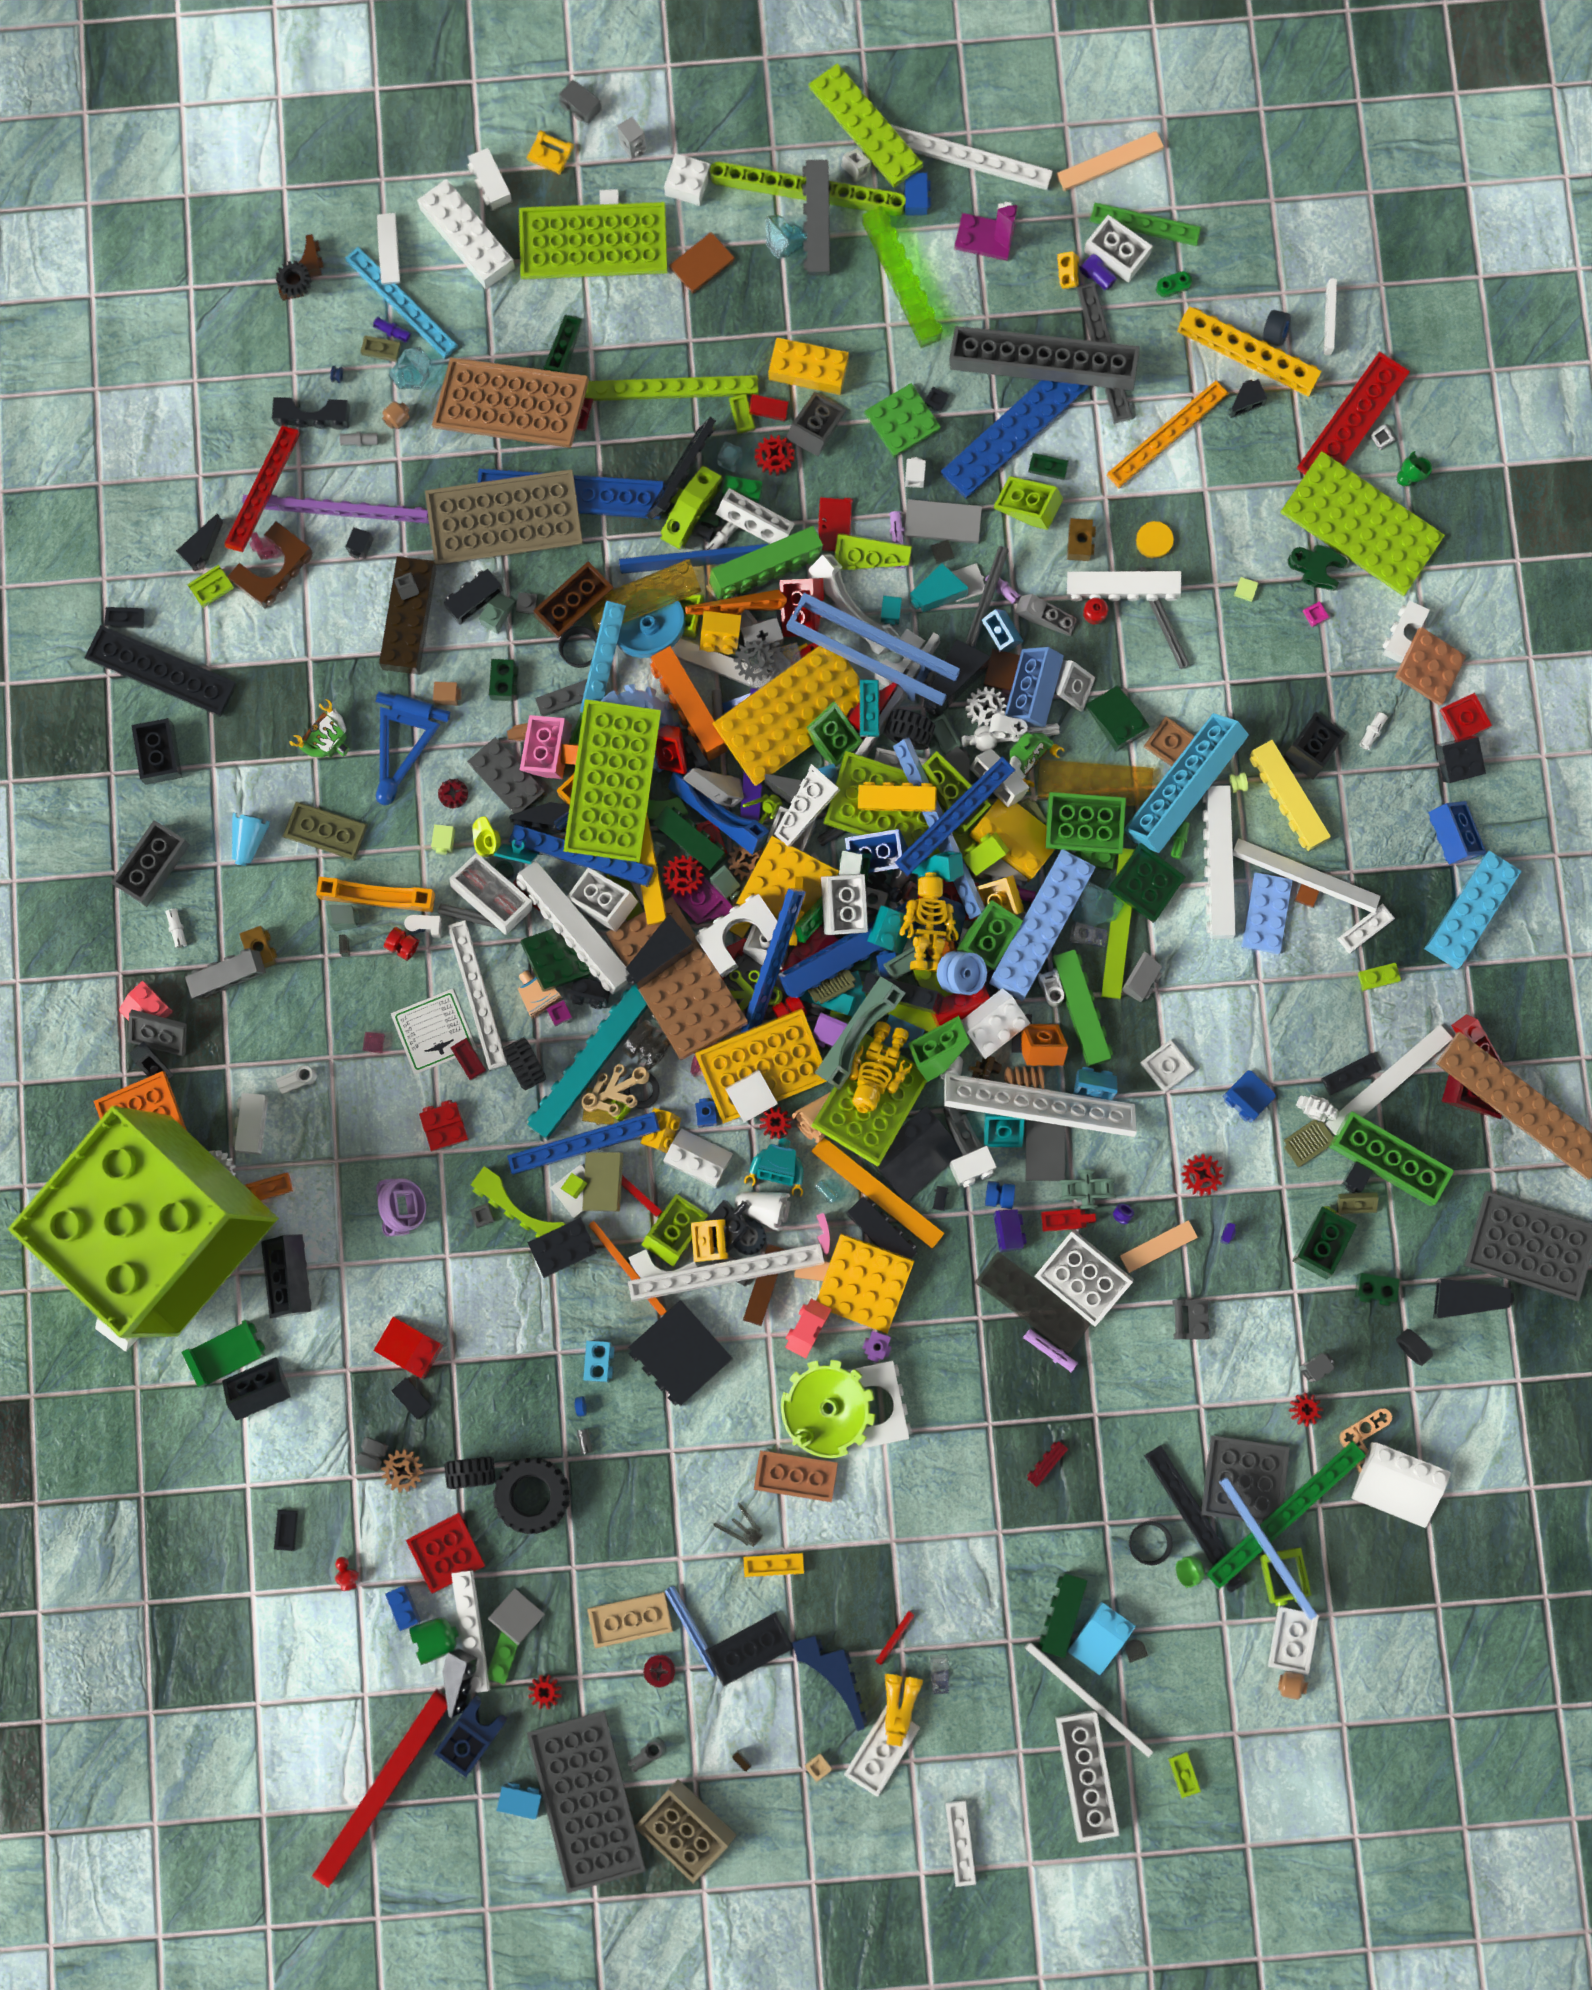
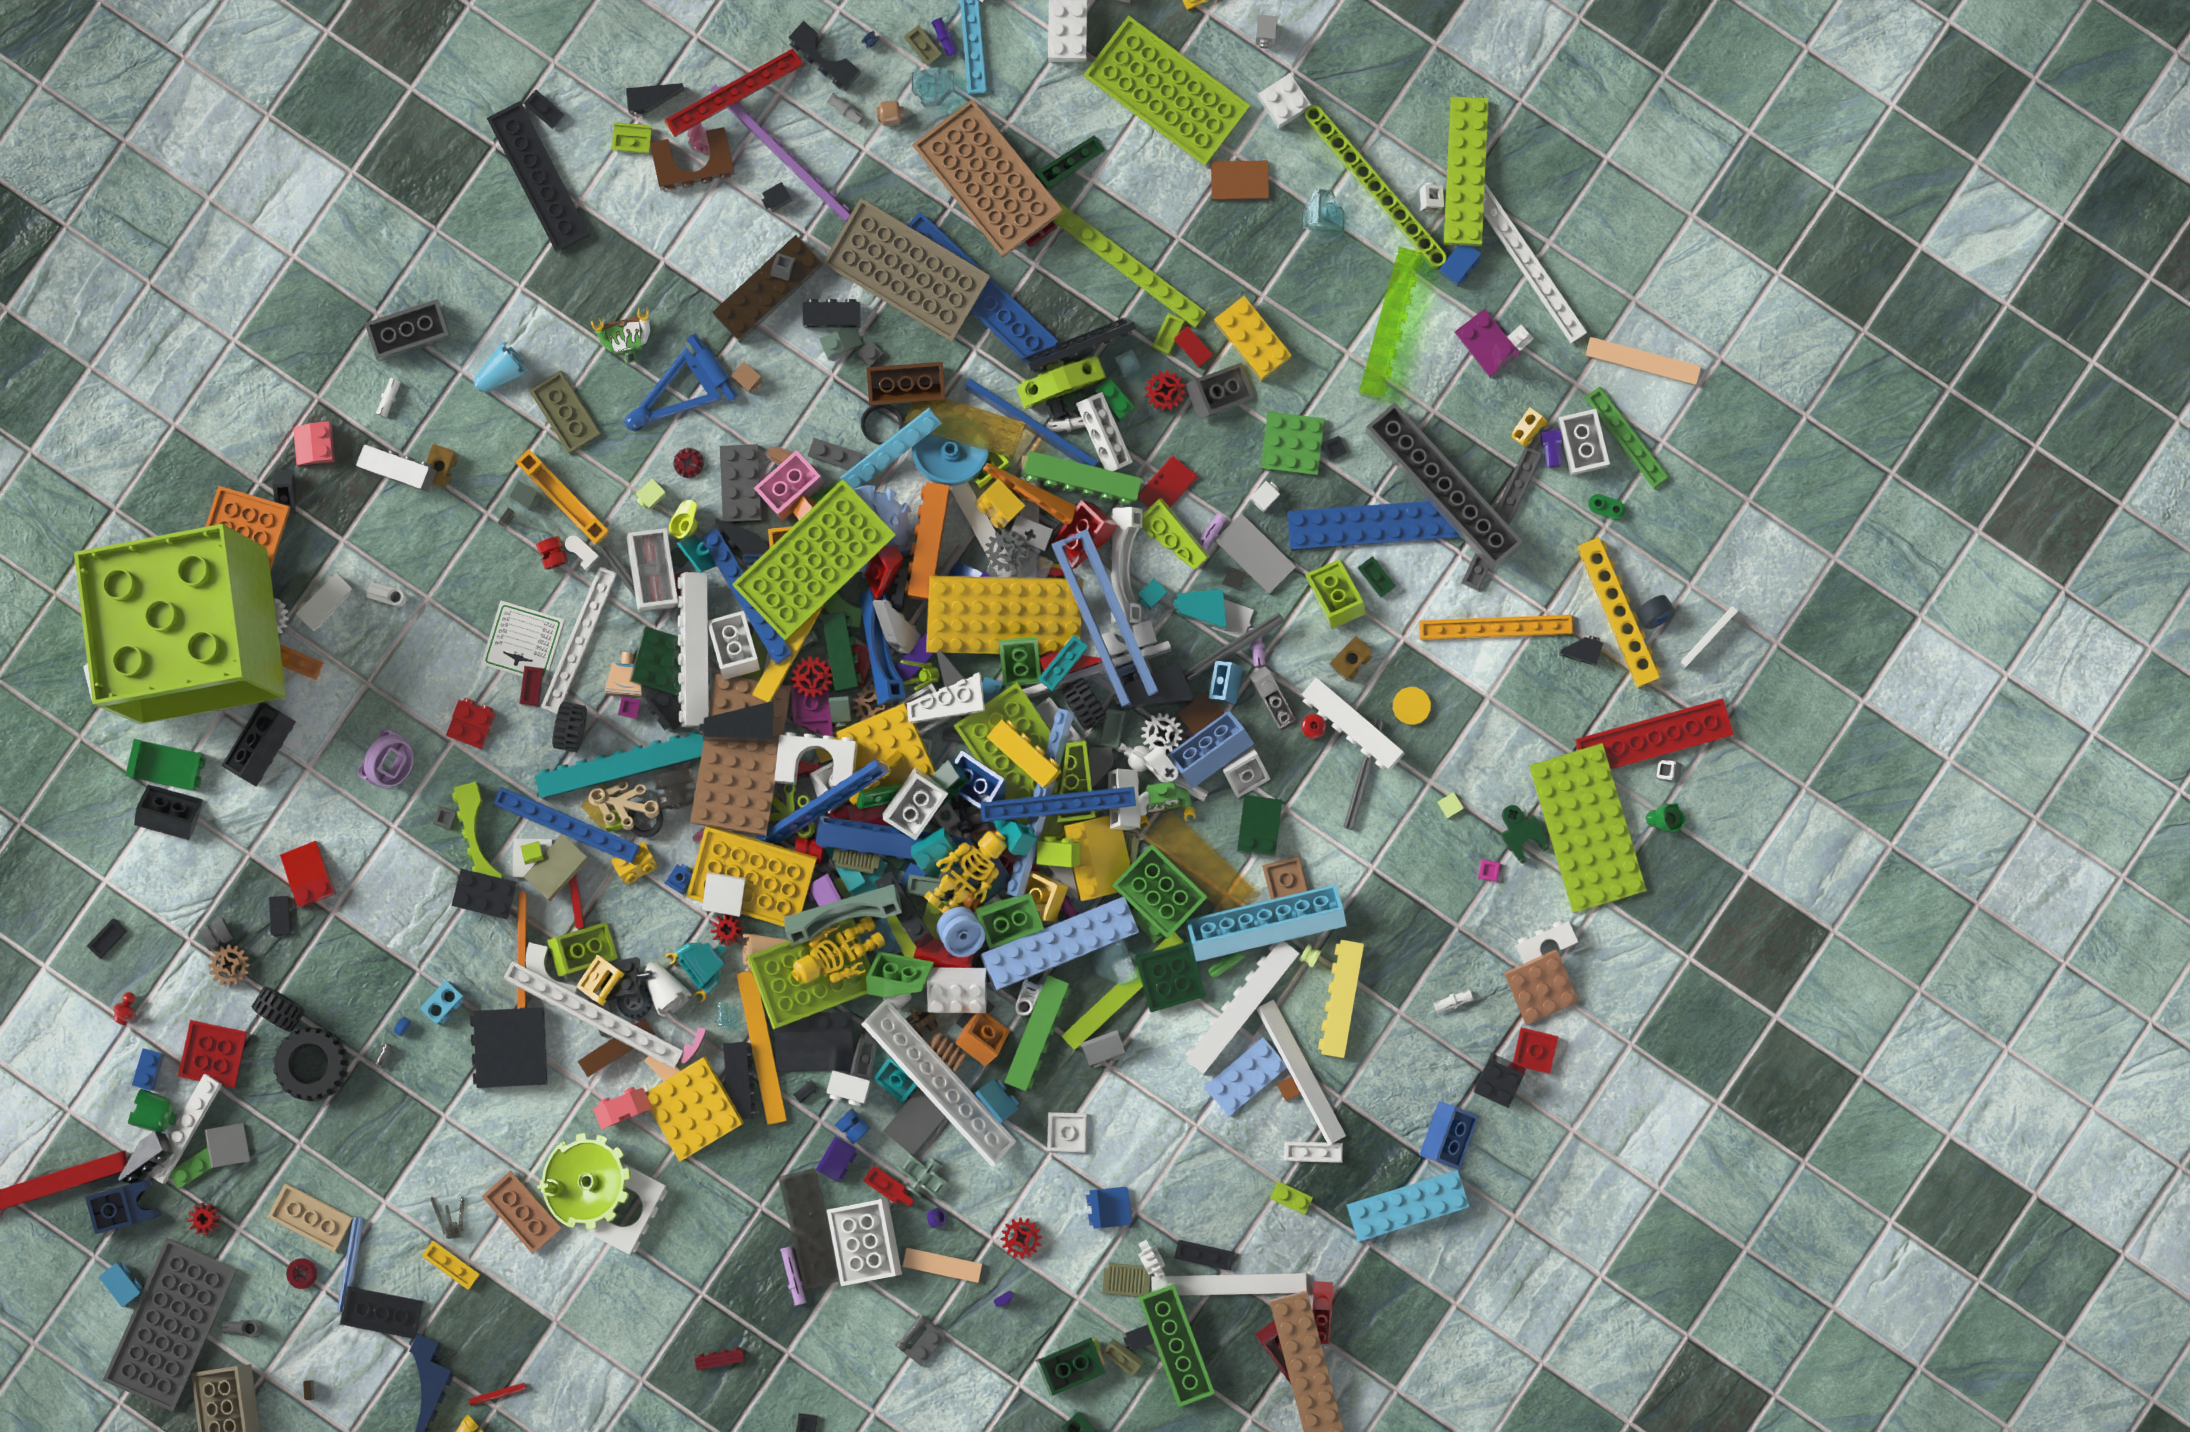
camera: 40 degrees right, 5 degrees up
(156, 751) = (483, 242): black brick -> none
(157, 1032) = (308, 472): dark grey tile -> none
(373, 1042) = (469, 613): clear pink tile -> none
(498, 680) = (795, 399): dark green brick -> none
(609, 196) = (1209, 64): white tile -> none
(698, 1158) = (645, 908): white slope -> none
(817, 213) = (1360, 221): dark grey brick -> none
(882, 1341) = (669, 1161): medium lavender brick -> none
(1088, 935) = (1090, 981): clear leg -> none
(1314, 745) = (1396, 975): black slope -> none

